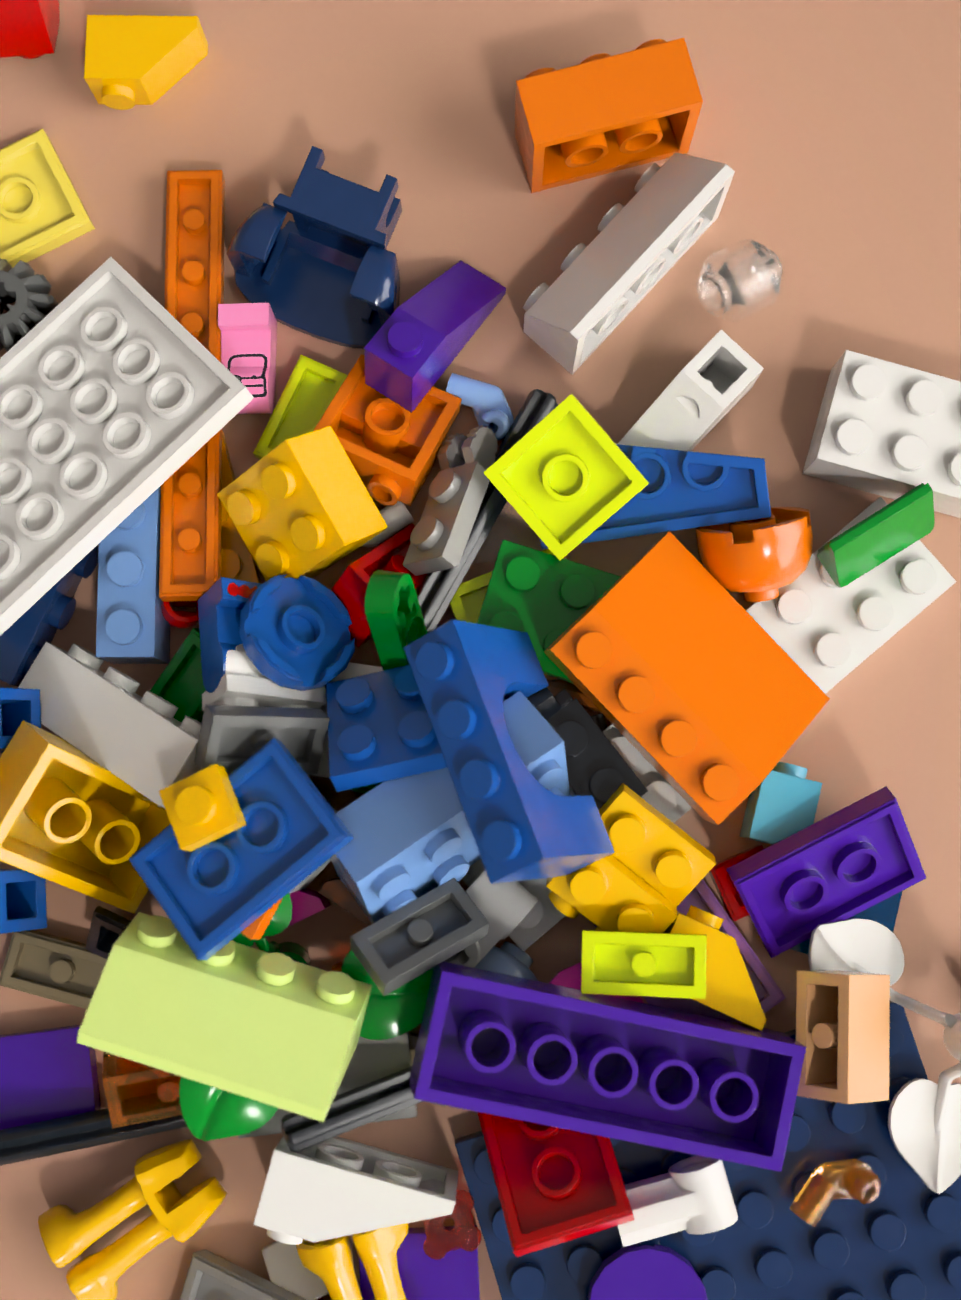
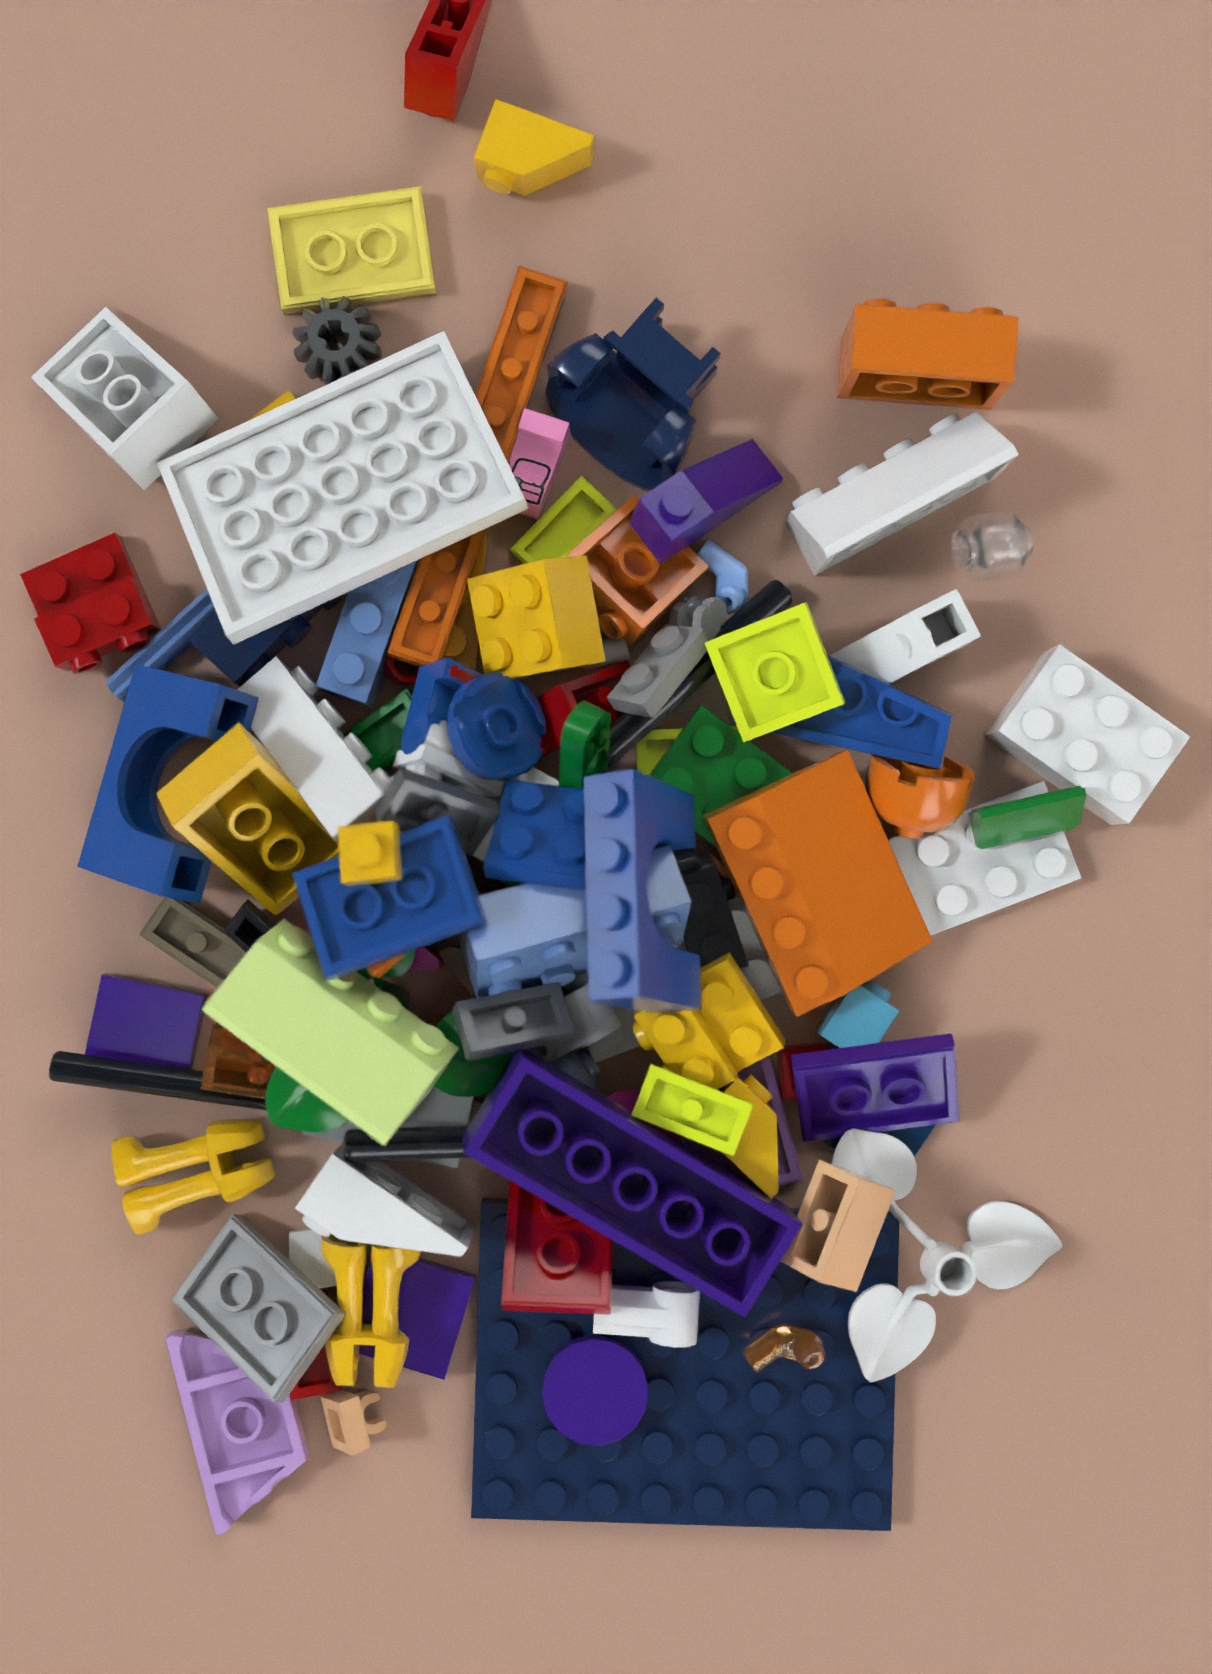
camera: 15 degrees right, 5 degrees up
(462, 1236) = (463, 1278): clear red plate -> none

